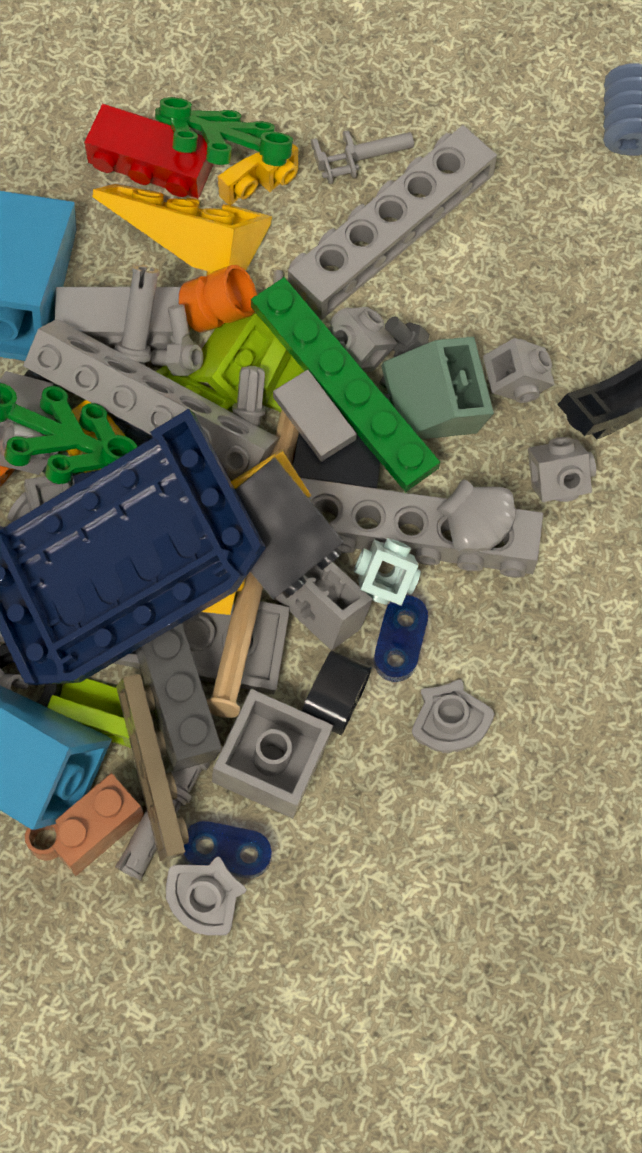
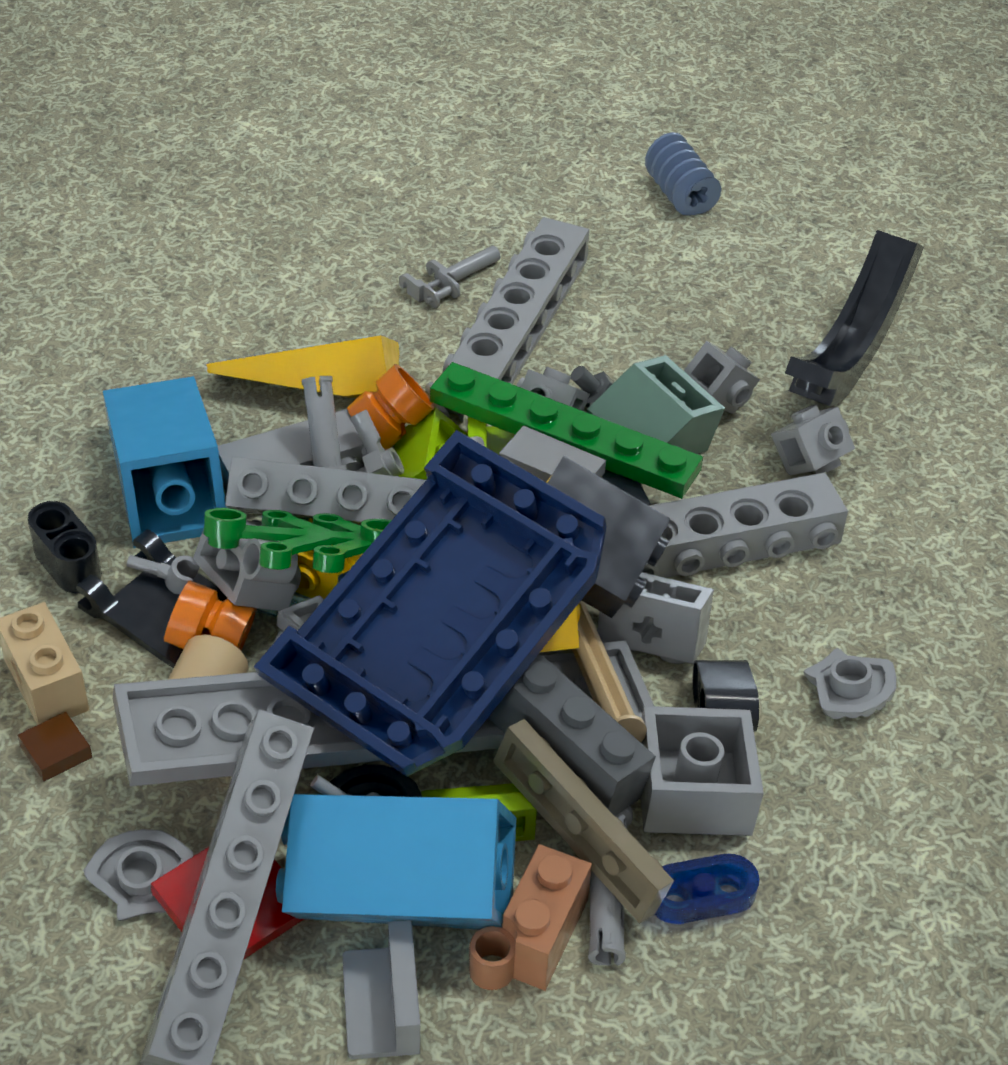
camera: 25 degrees left, 25 degrees down
(145, 153) = (242, 324): red brick -> none
(203, 896) = (709, 941): light grey animal -> none
(222, 125) = (257, 286): green plant -> none
(243, 177) = (367, 308): yellow slope -> none
(392, 585) = (713, 562): light aqua brick -> none
(401, 640) = (757, 635): clear blue plate -> none
(478, 516) = (770, 486): light grey animal -> none

